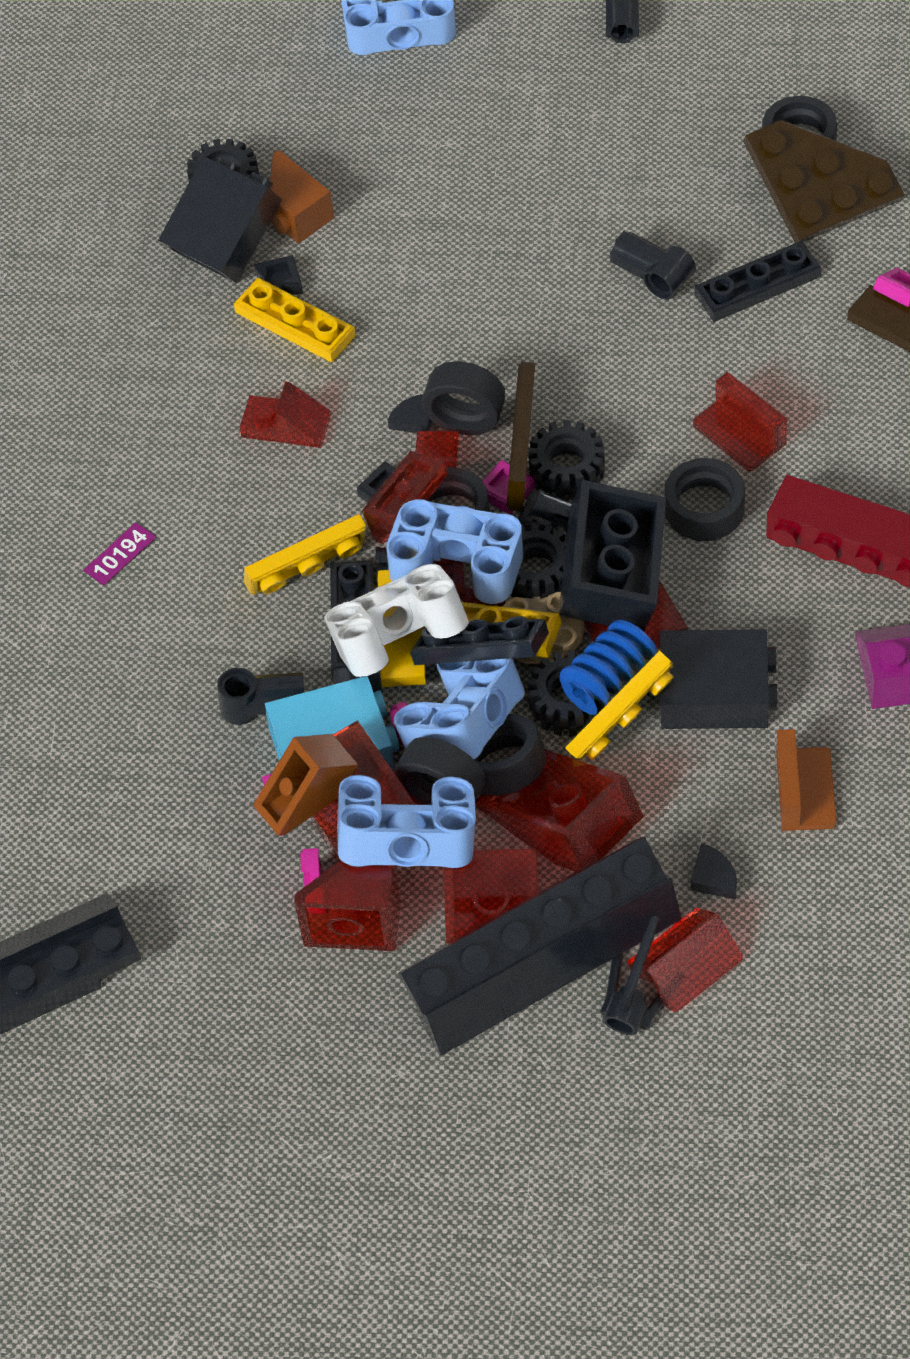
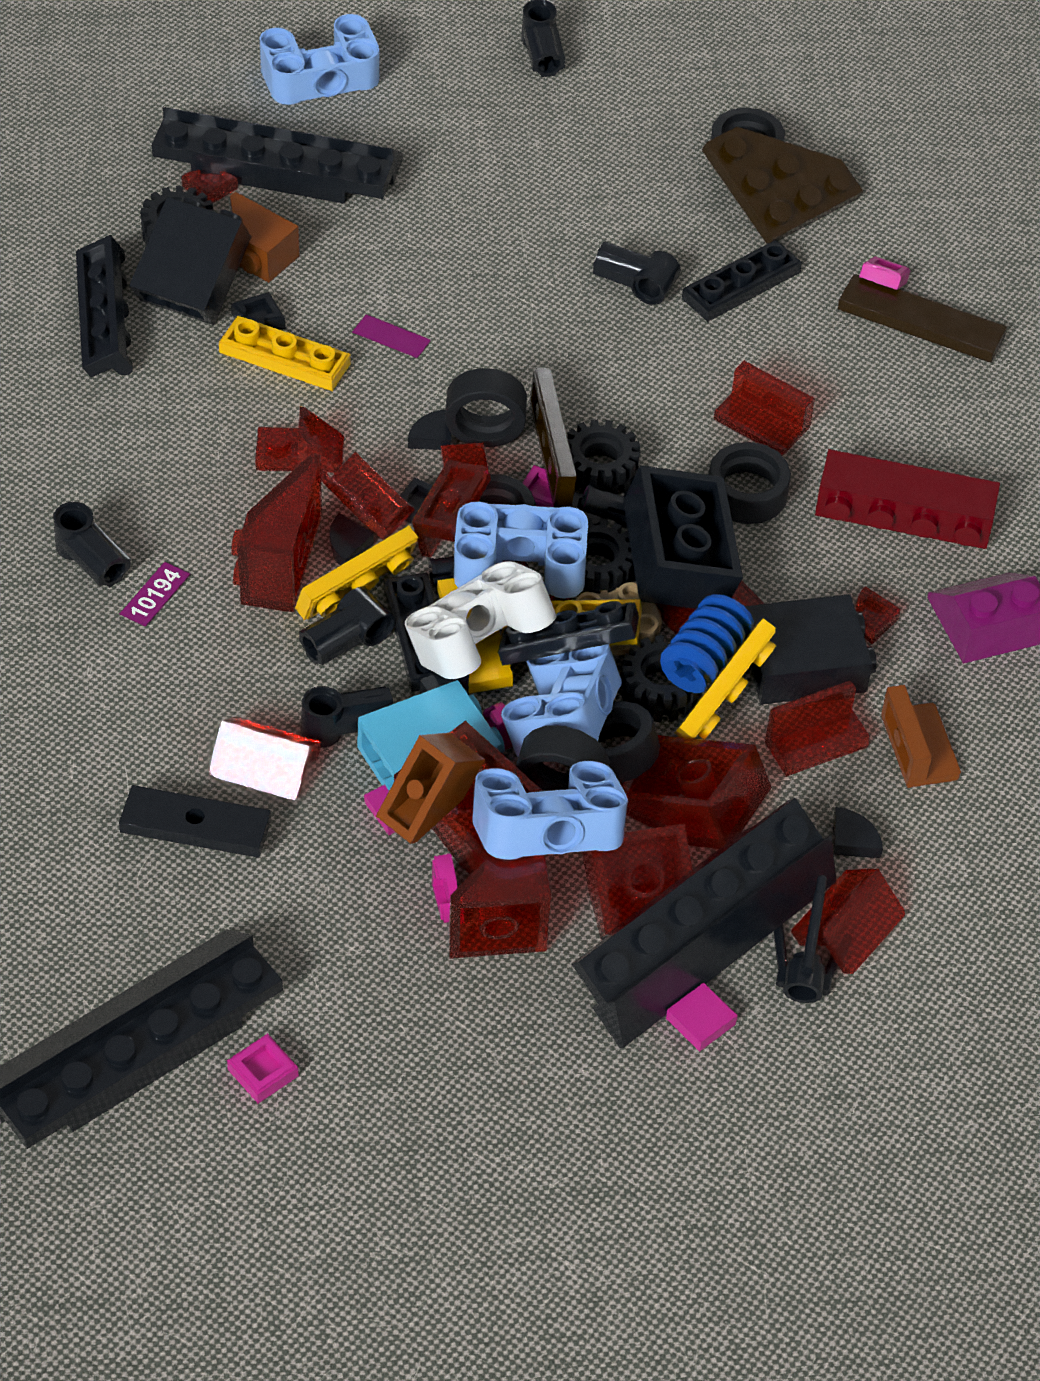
camera: 20 degrees left, 5 degrees down
(65, 500) = (86, 544): none -> black piece
(81, 777) = (195, 821): none -> black tile
(108, 1030) = (262, 1068): none -> dark pink tile
(134, 258) = (103, 308): none -> black hinge
(177, 727) = (262, 757): none -> panel
(238, 513) = (279, 539): none -> clear red slope
(263, 137) = (212, 185): none -> clear red tile
(293, 603) = (356, 621): none -> black piece
(308, 517) = (348, 539): none -> black tile
(331, 477) = (368, 496): none -> clear red panel
(333, 112) = (276, 156): none -> black slope
(401, 310) = (391, 336): none -> magenta sticker
(520, 1035) = (701, 1017): none -> dark pink tile
(703, 762) = (815, 729): none -> clear red panel
(795, 649) = (877, 613): none -> clear red tile

